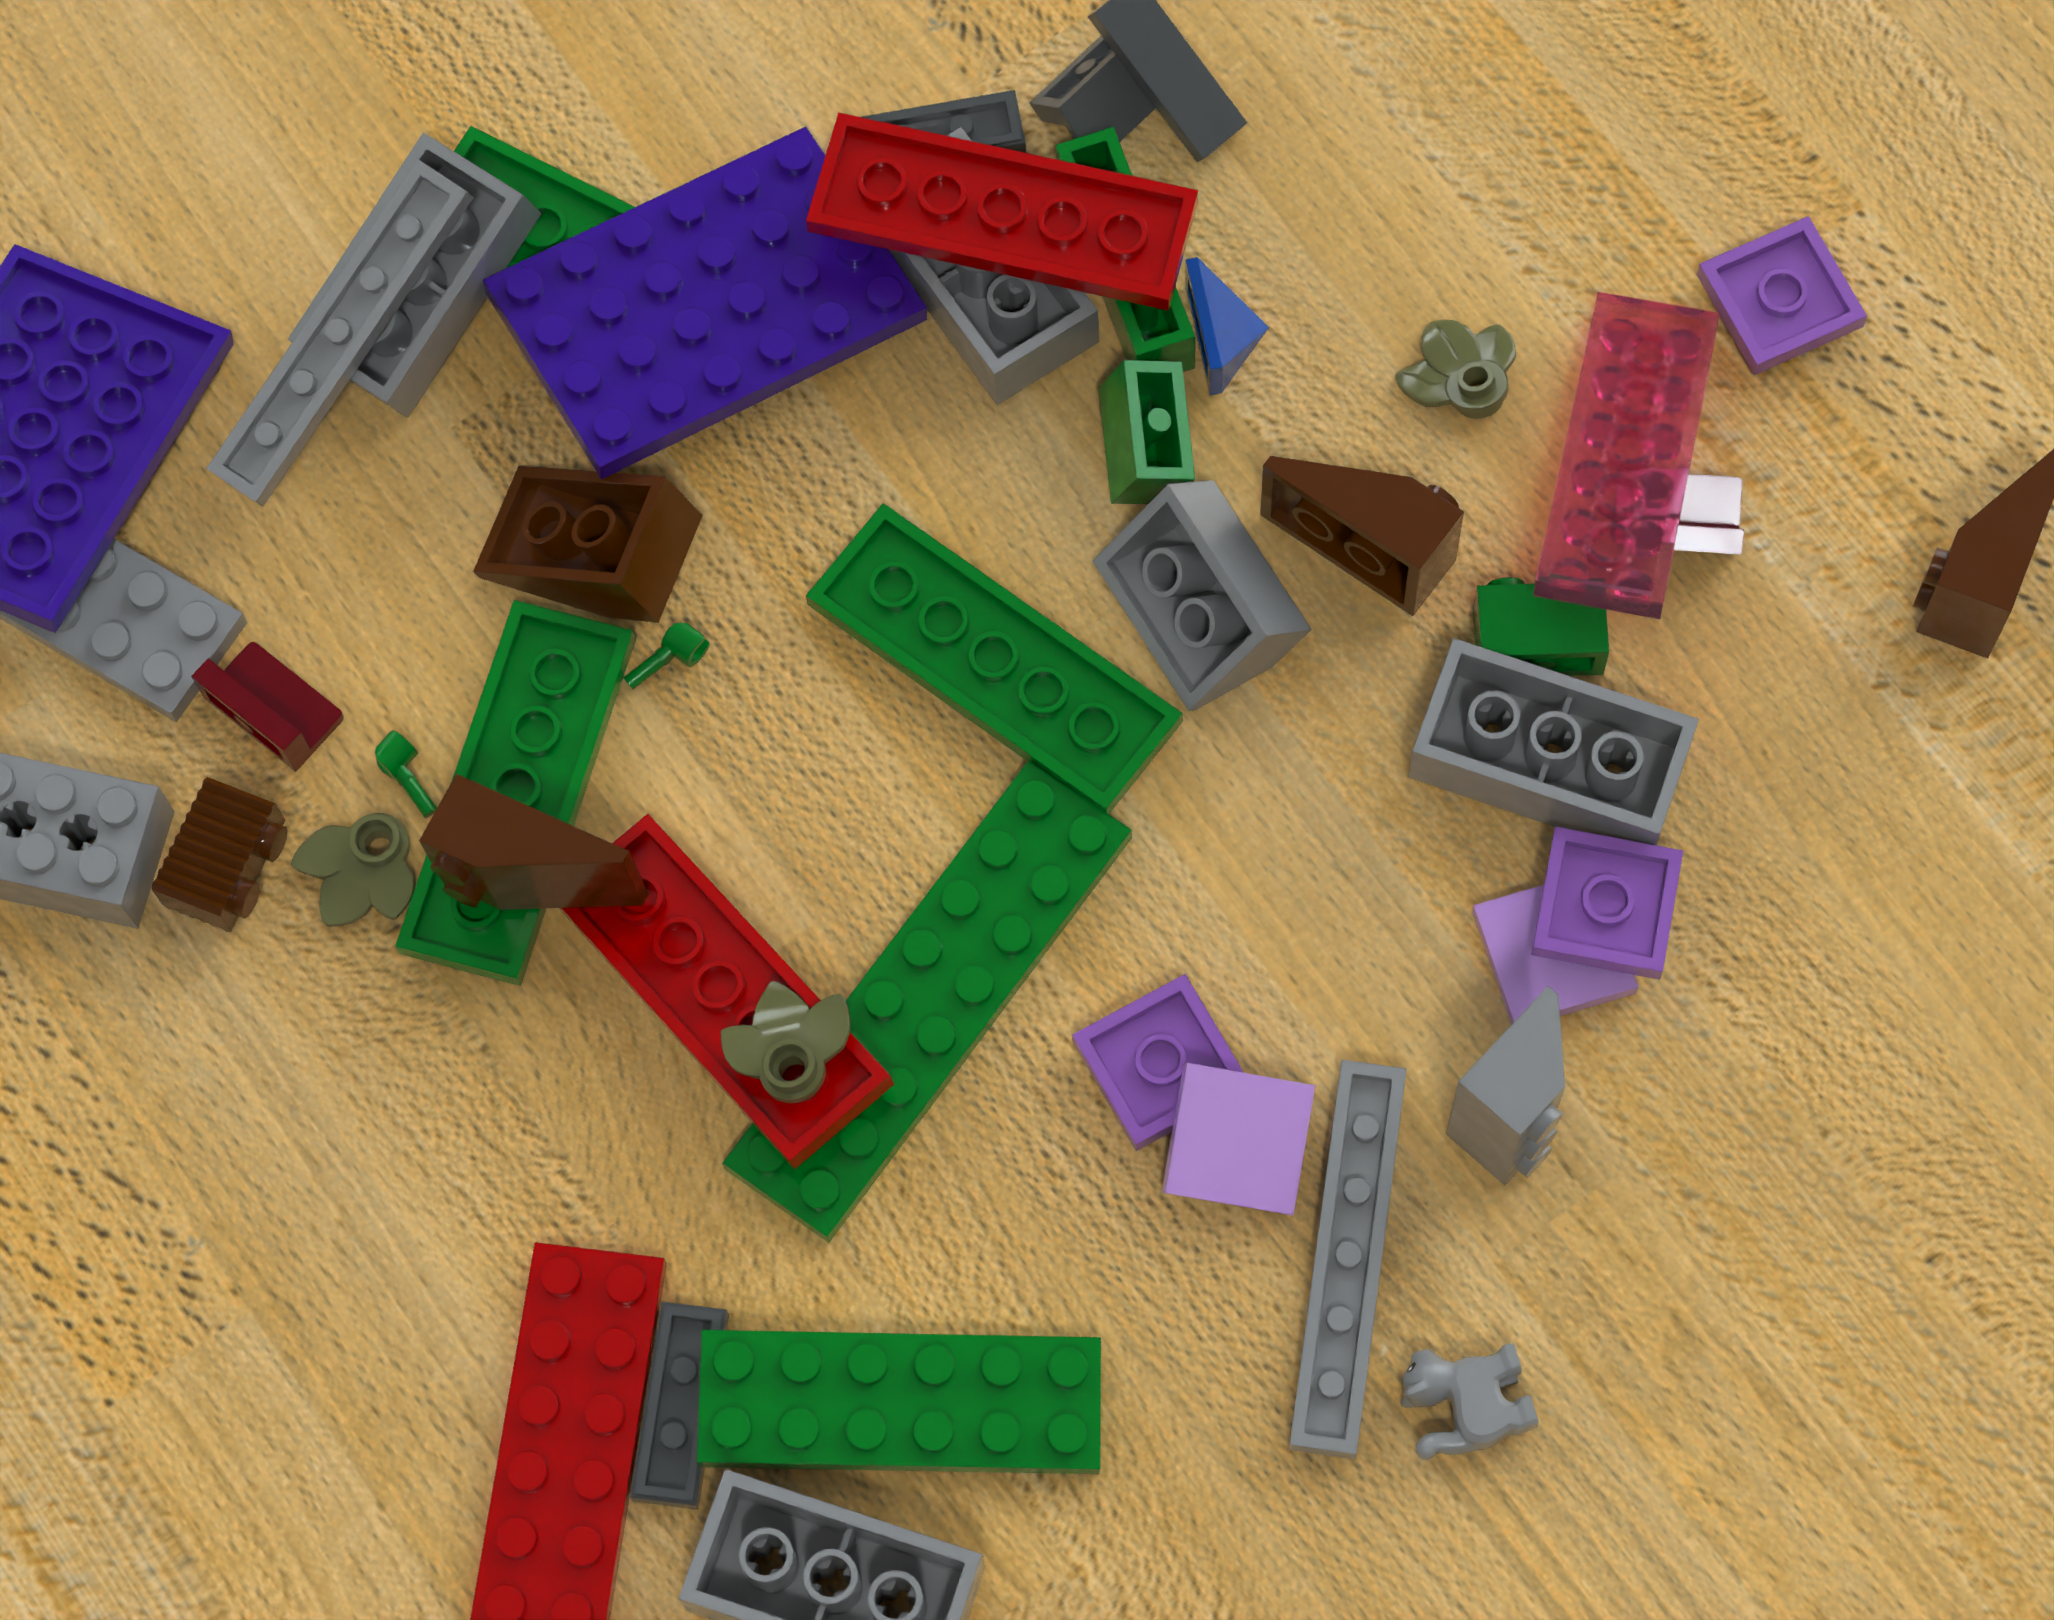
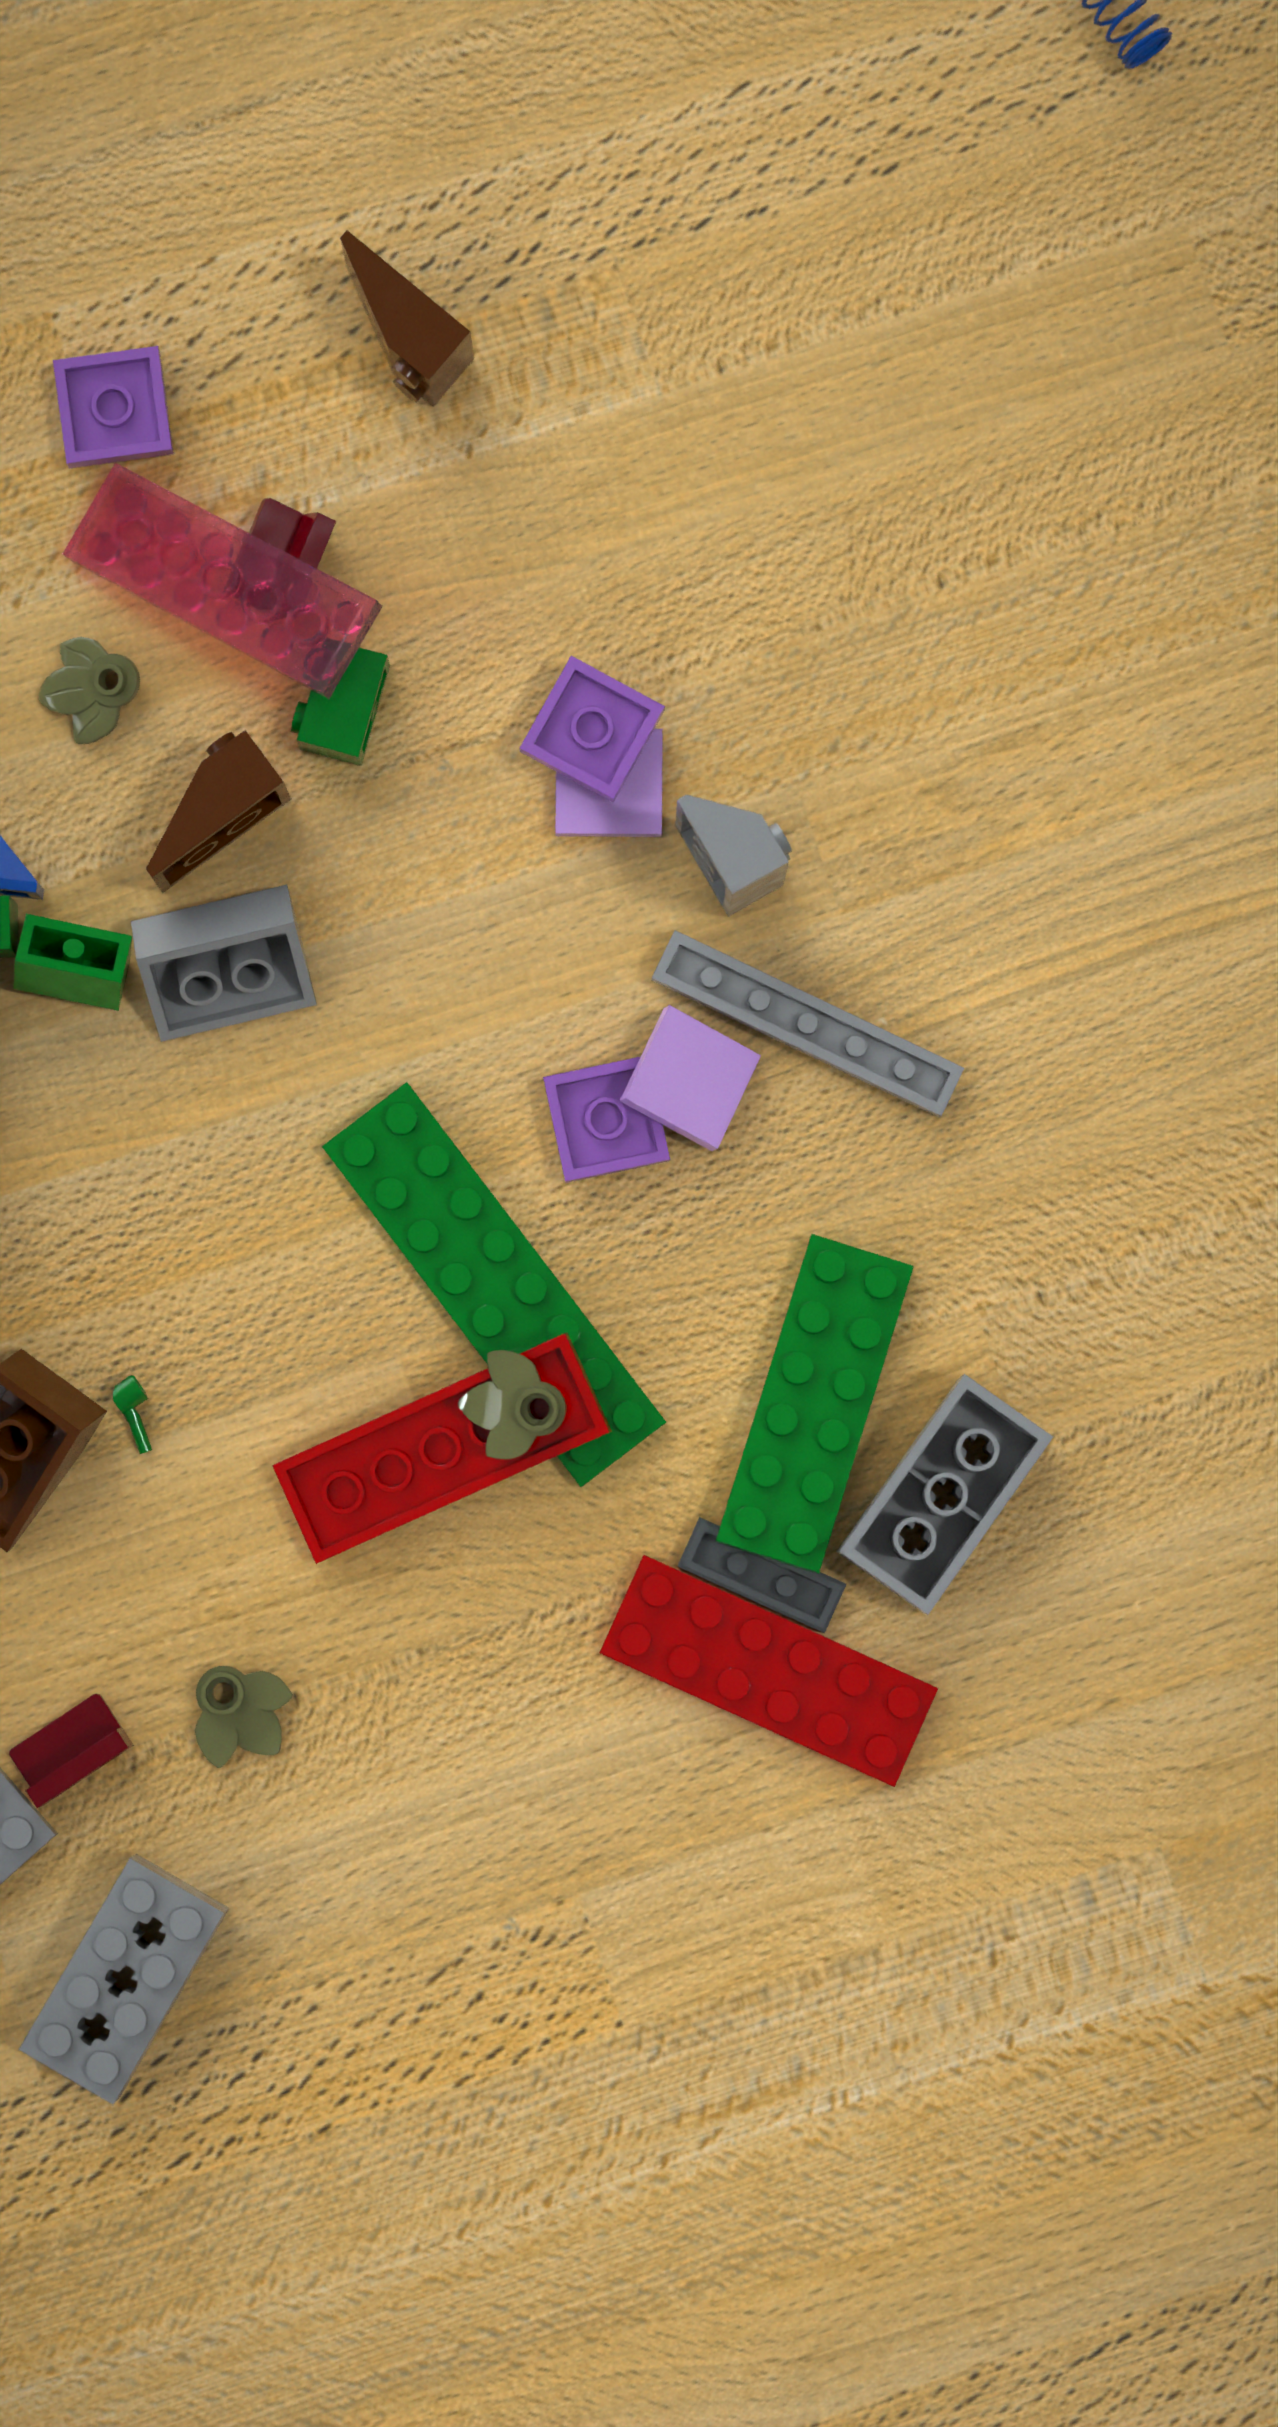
camera: 80 degrees left, 15 degrees up
(220, 855) = (195, 1822): reddish brown brick -> none
(392, 758) = (151, 1660): green hand -> none
(521, 857) = (288, 1584): reddish brown slope -> none
(532, 743) = (214, 1566): green plate -> none
(994, 659) = (223, 1147): green plate -> none
(1478, 1407) = (946, 963): light grey animal -> none
(1544, 709) = (447, 692): light grey brick -> none

